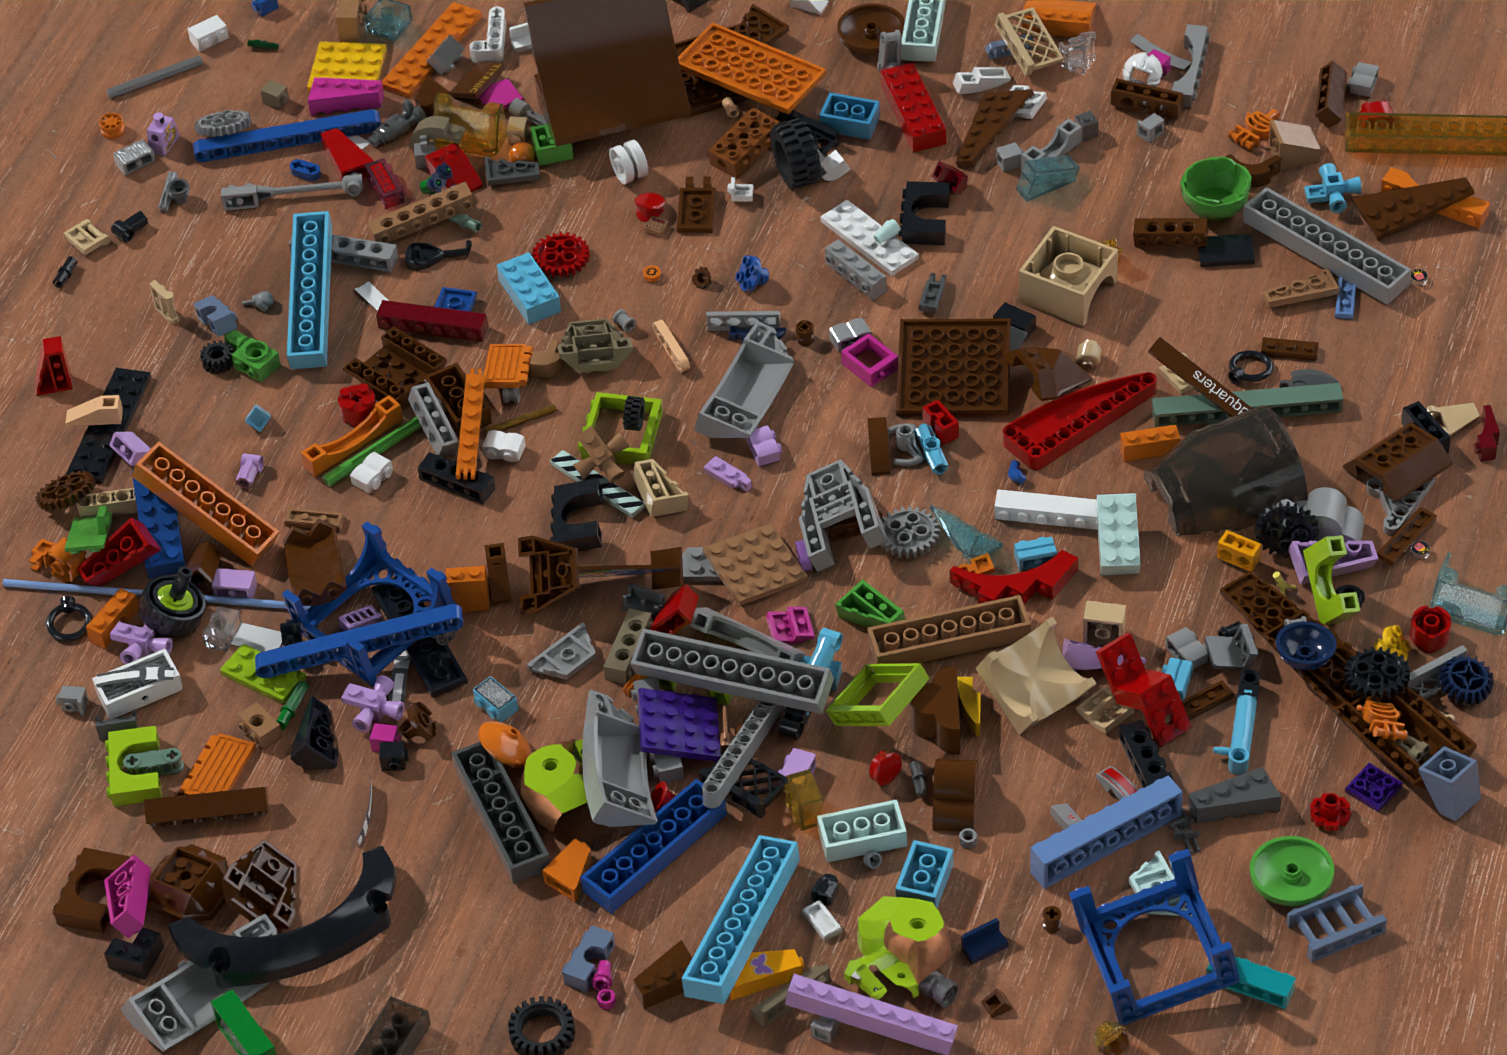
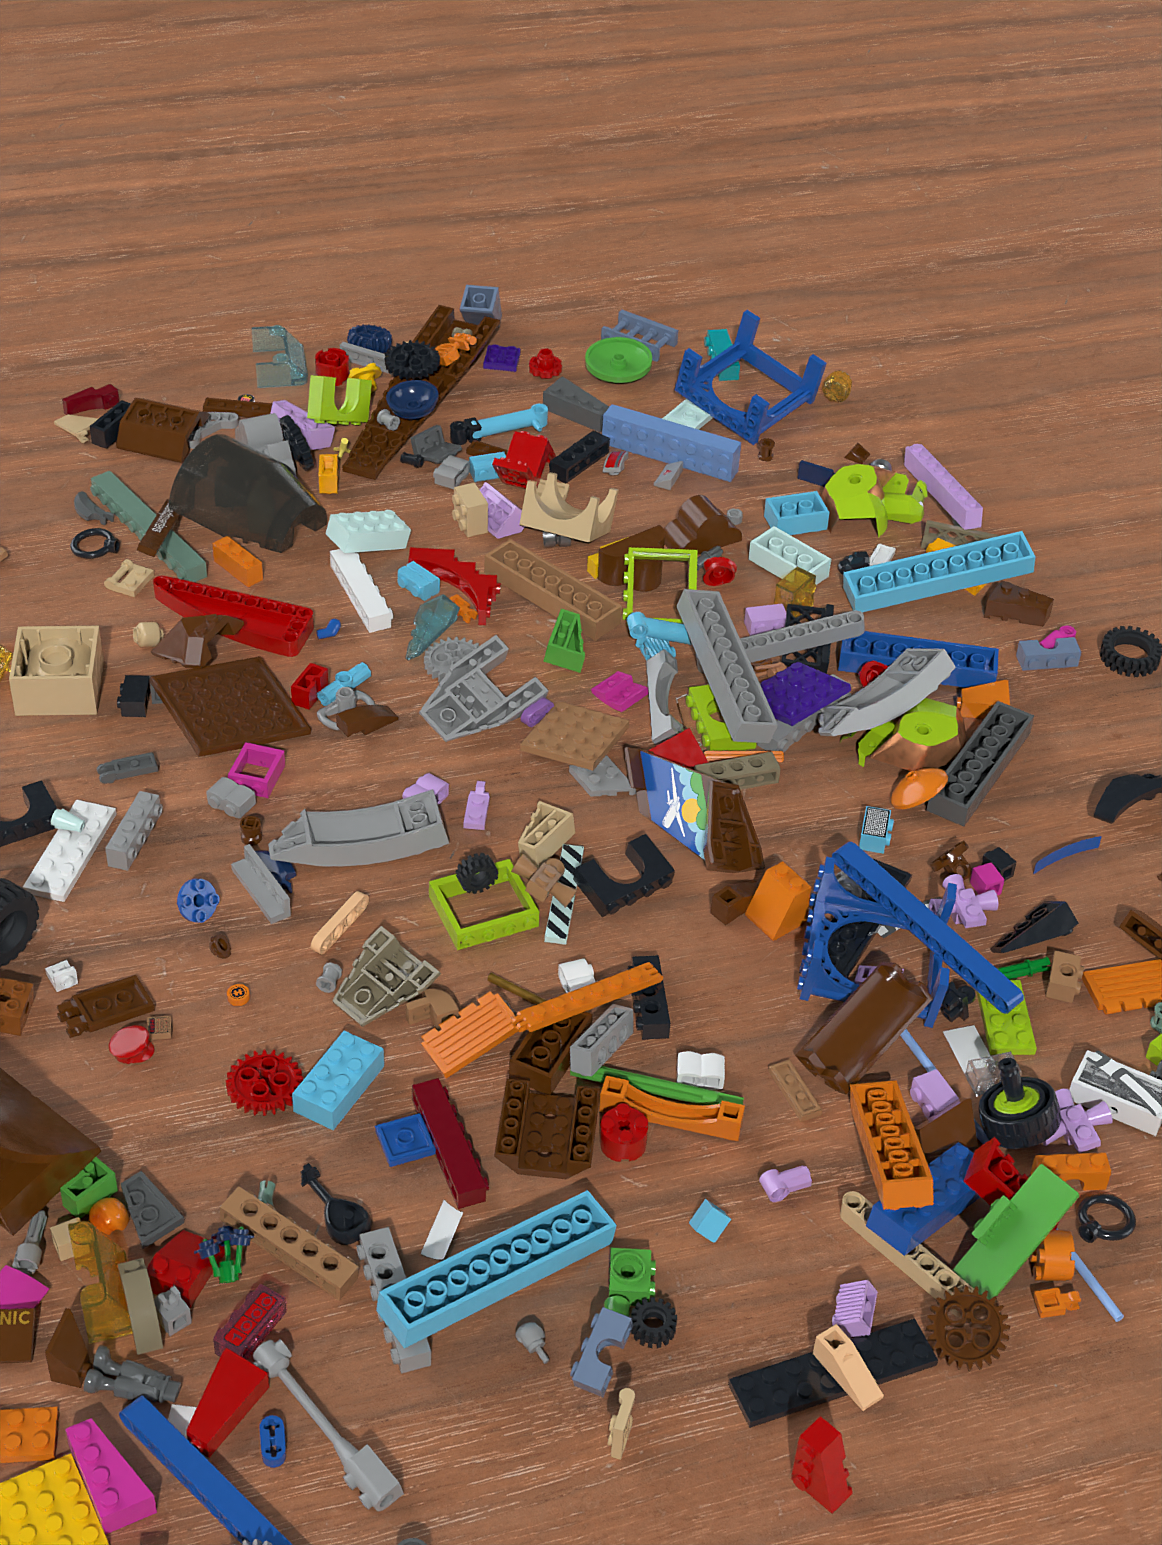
camera: 130 degrees left, 5 degrees down
(566, 655) = (783, 810): light grey wing -> none
(628, 161) = (79, 1082): white wheel -> none
(1290, 348) = (53, 531): reddish brown plate -> none

